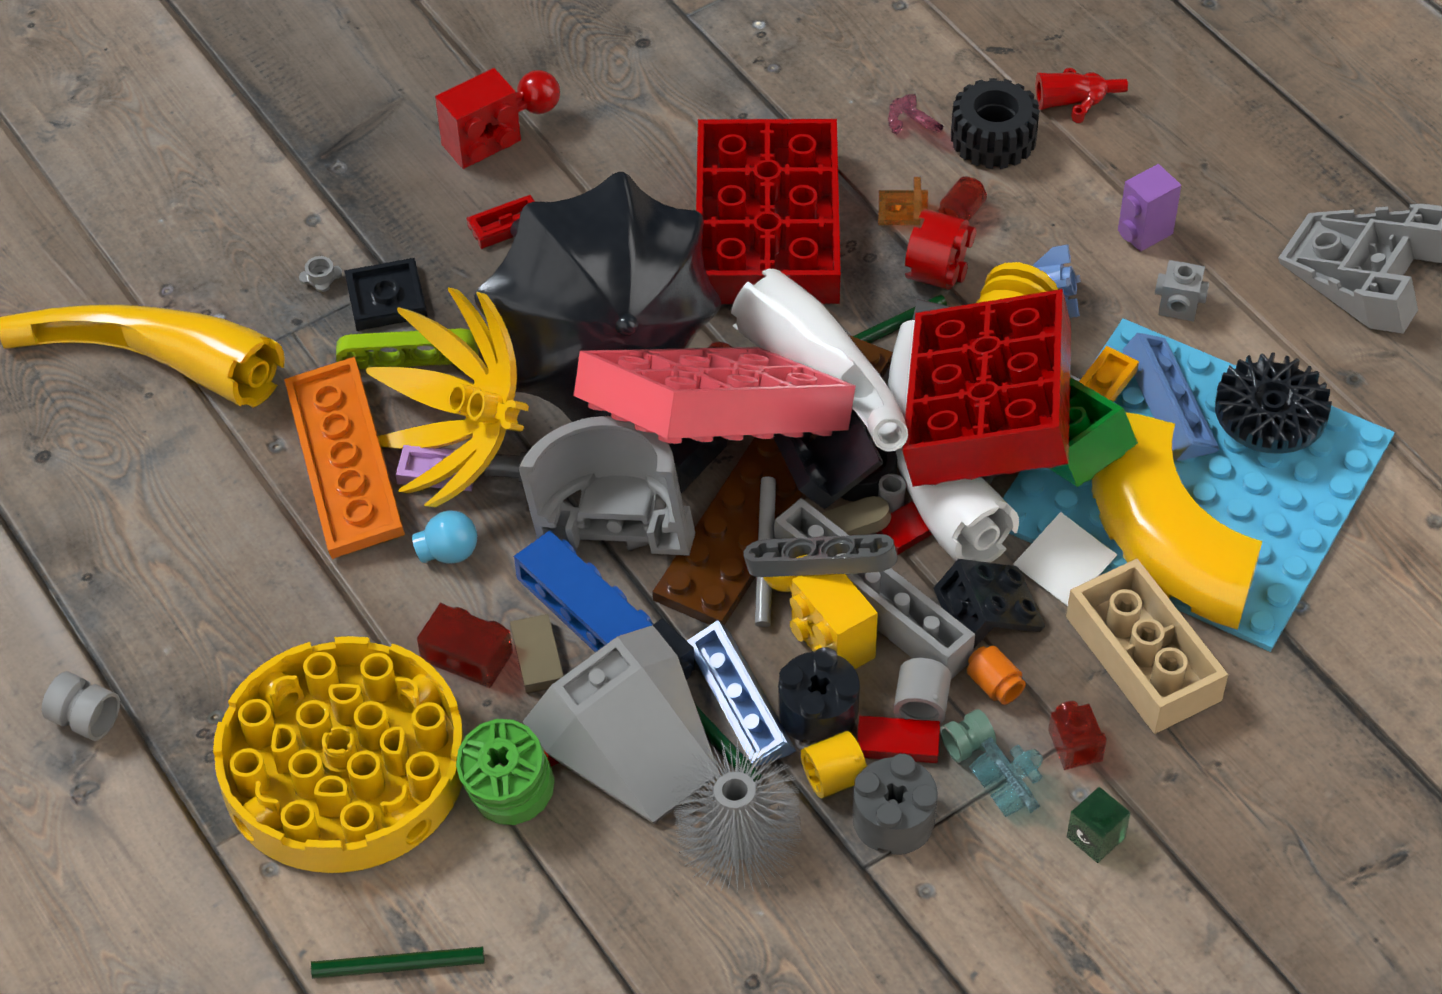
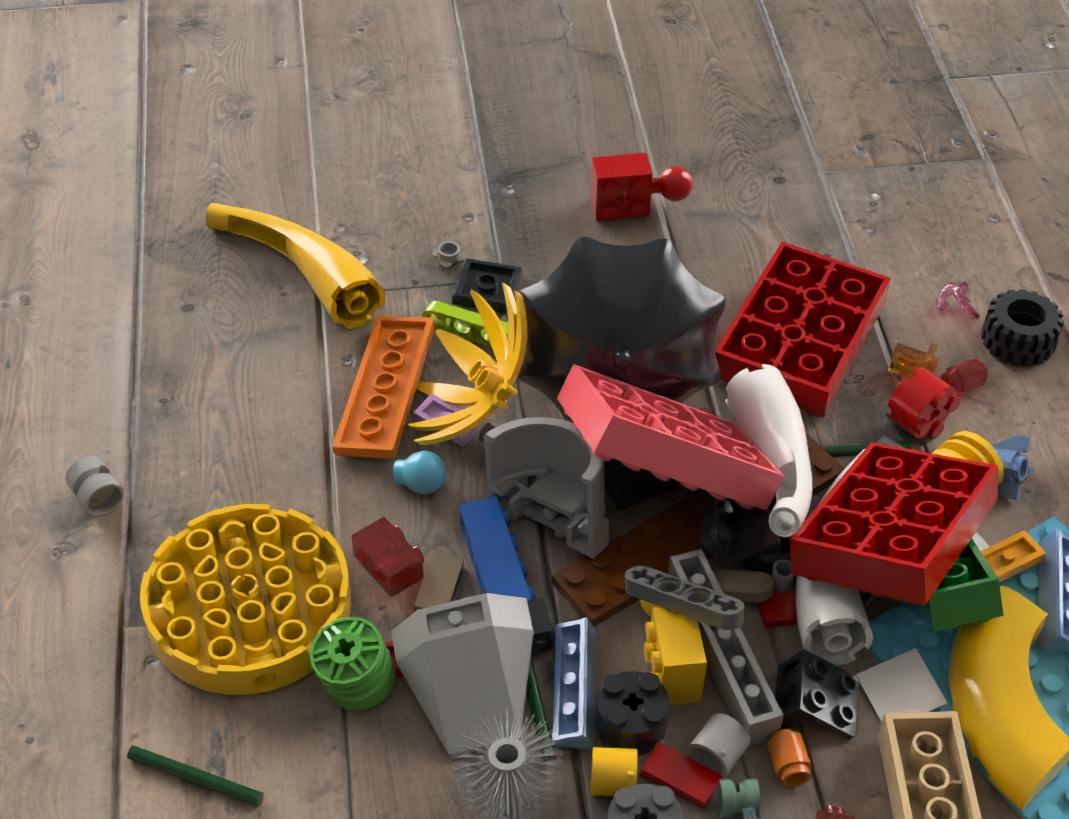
camera: 25 degrees right, 5 degrees down
(766, 531) = (672, 549): light grey bar -> none

